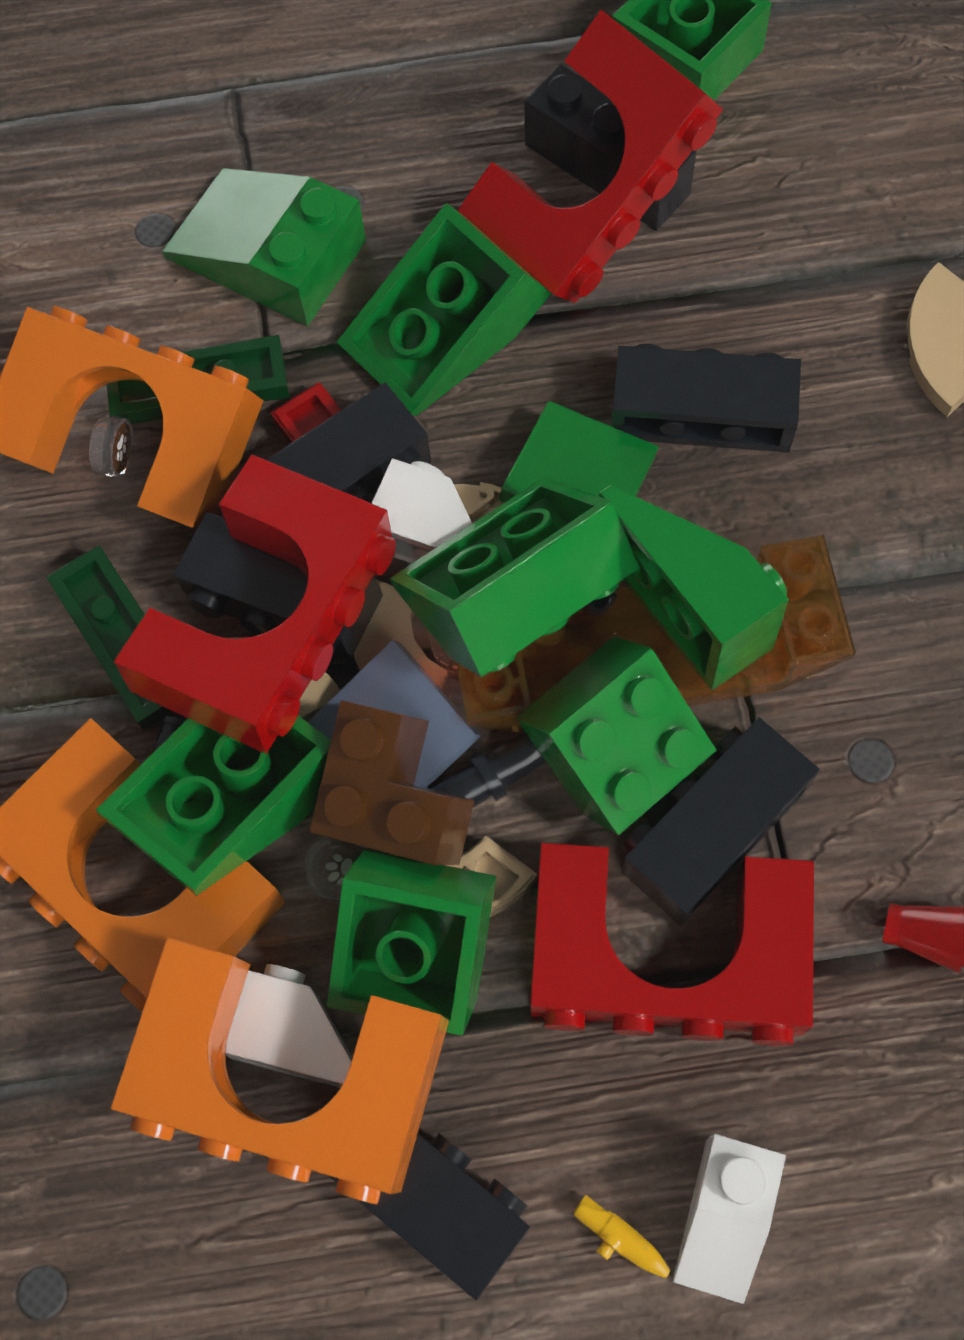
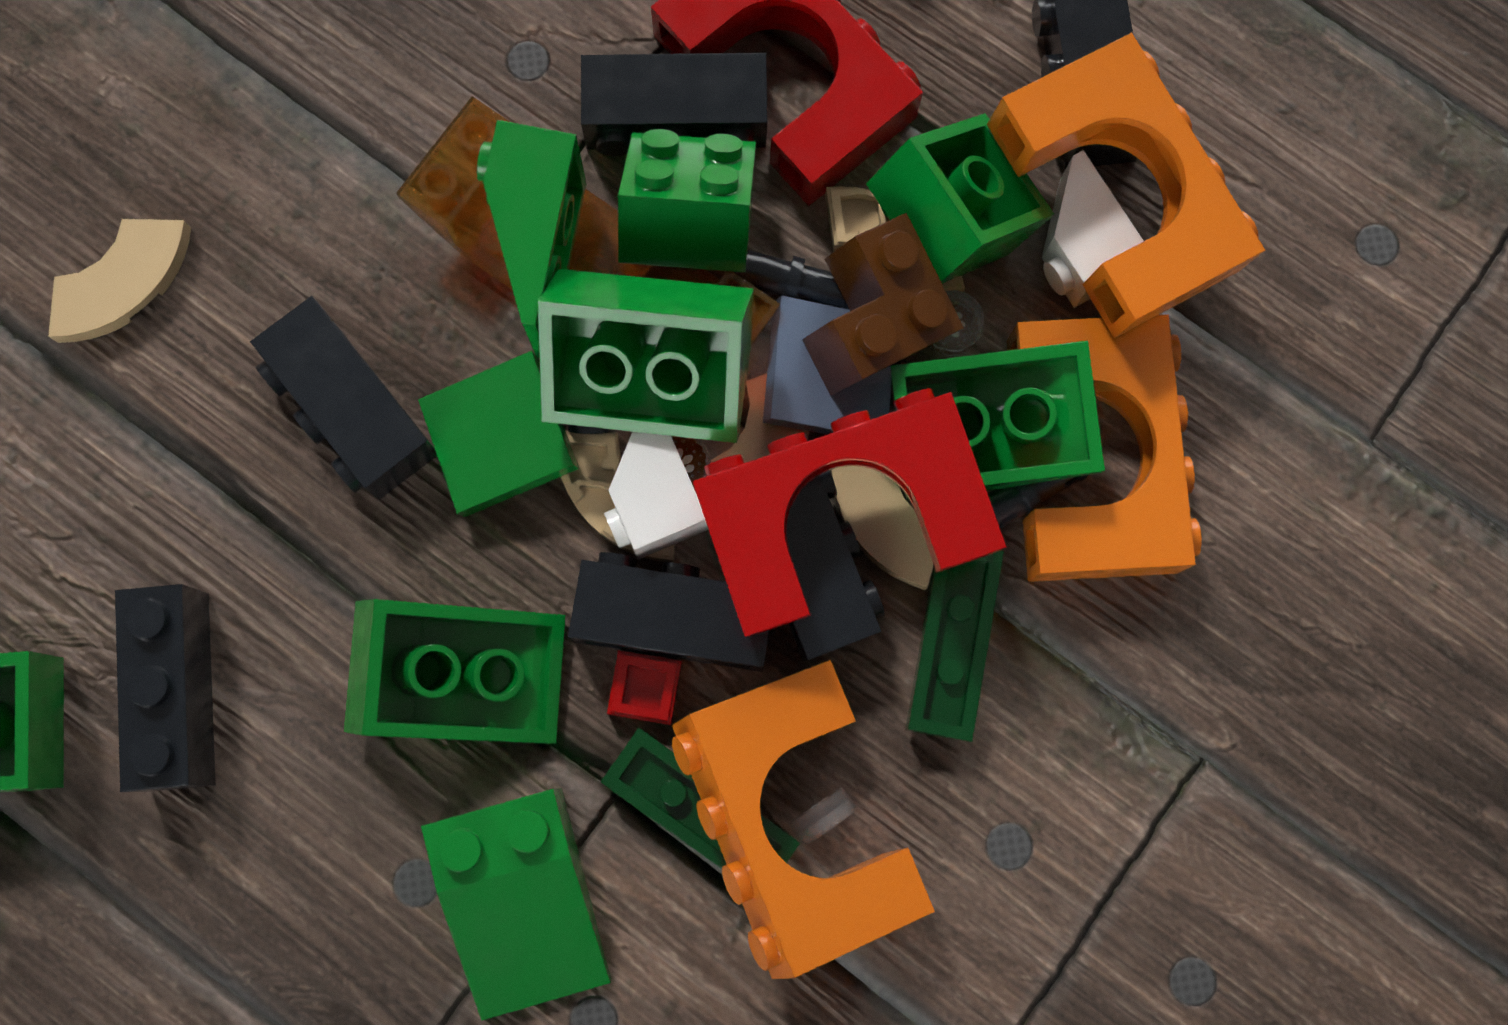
camera: 145 degrees left, 10 degrees up
(662, 125) = (120, 608): red arch -> none

